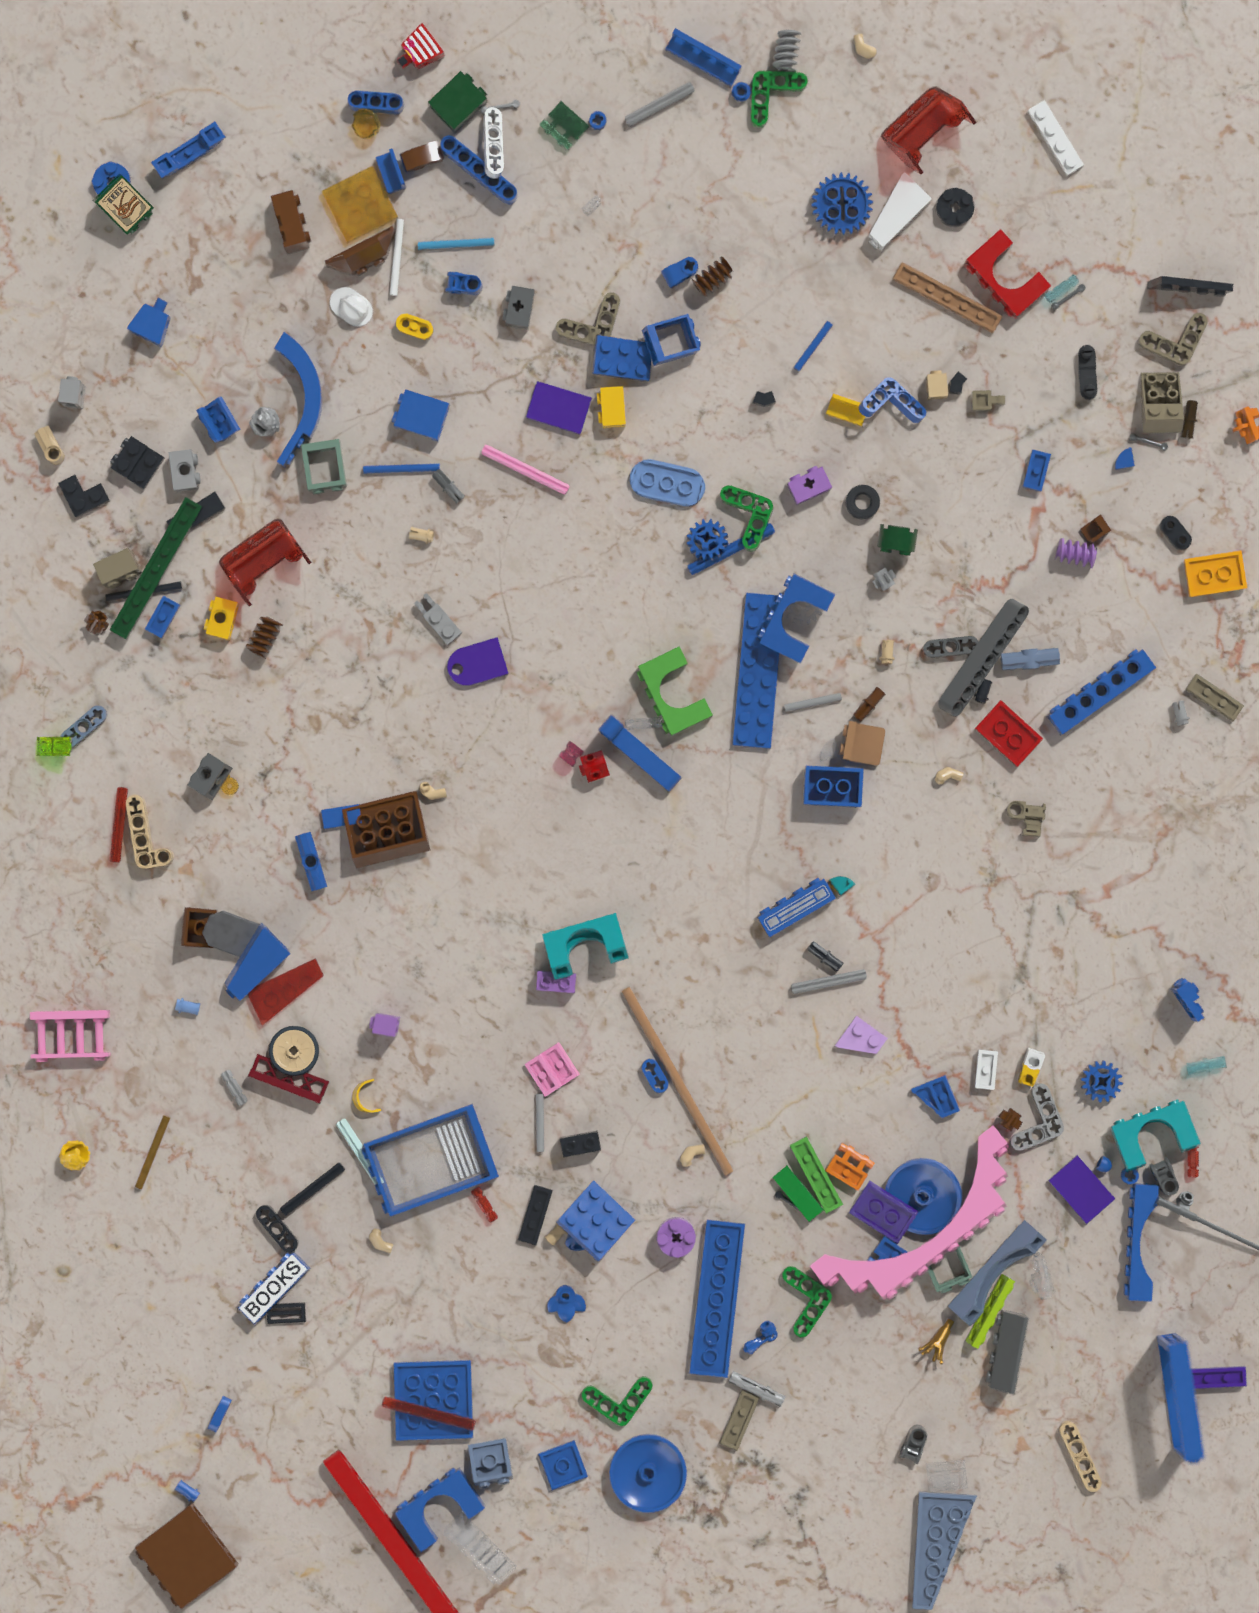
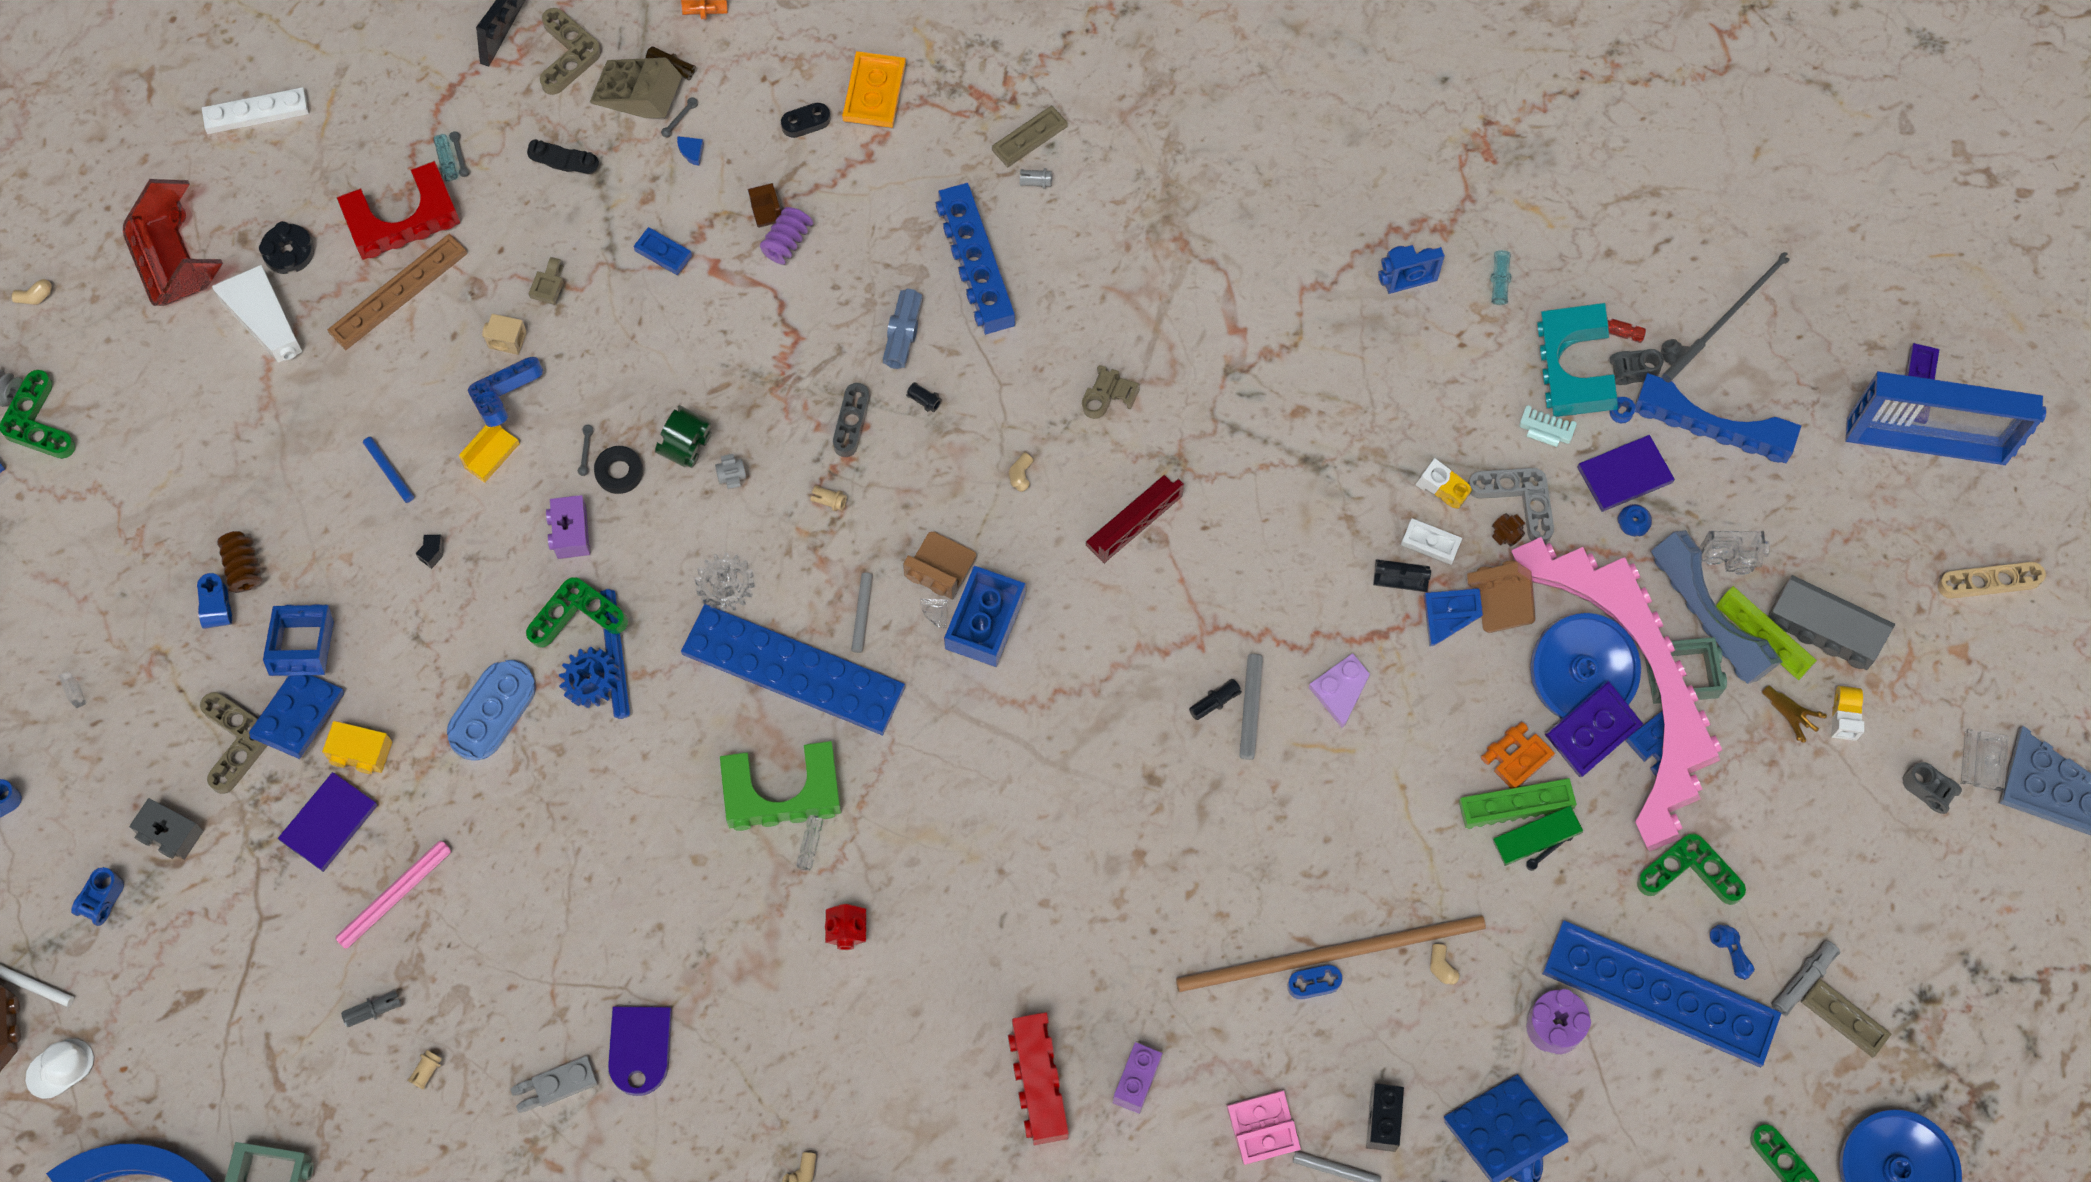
camera: 70 degrees left, 20 degrees down
(401, 468) = (318, 1070): blue bar -> none
(414, 327) = (125, 983): yellow plate -> none
(421, 414) = (253, 1013): blue panel -> none
(456, 243) = (39, 891): dark azure bar -> none
(534, 921) = (1038, 1078): none -> red wedge
(562, 941) = (1084, 984): teal arch -> none
(574, 750) = (816, 954): clear pink wheel -> none
(639, 753) = (813, 881): blue beam -> none
(741, 85) = (13, 450): blue plate -> none
(796, 590) = (749, 624): blue arch -> none
(796, 907) = (1135, 717): blue brick -> none
(841, 884) = (1122, 650): teal tile -> none
(859, 203) = (211, 396): blue gear -> none
(869, 704) = (889, 540): reddish brown axle -> none
(885, 469) = (587, 431): none -> dark grey hinge
(939, 863) = (1135, 518): none -> dark red fence
(950, 1377) = (1847, 713): none -> leg
(955, 1056) = (1401, 575): none -> black hinge
(956, 383) = (511, 309): black piece -> none
(958, 1129) = (1505, 595): none -> medium nougat bracket
(983, 657) = (880, 381): dark grey beam -> none
(1008, 733) = (990, 382): red plate -> none
(1041, 1205) = (1632, 527): none -> blue plate
(1095, 1126) = (1546, 432): none -> light aqua piece
(1096, 1074) = (1487, 405): blue gear -> none
(1104, 1164) = (1599, 436): blue hinge -> none

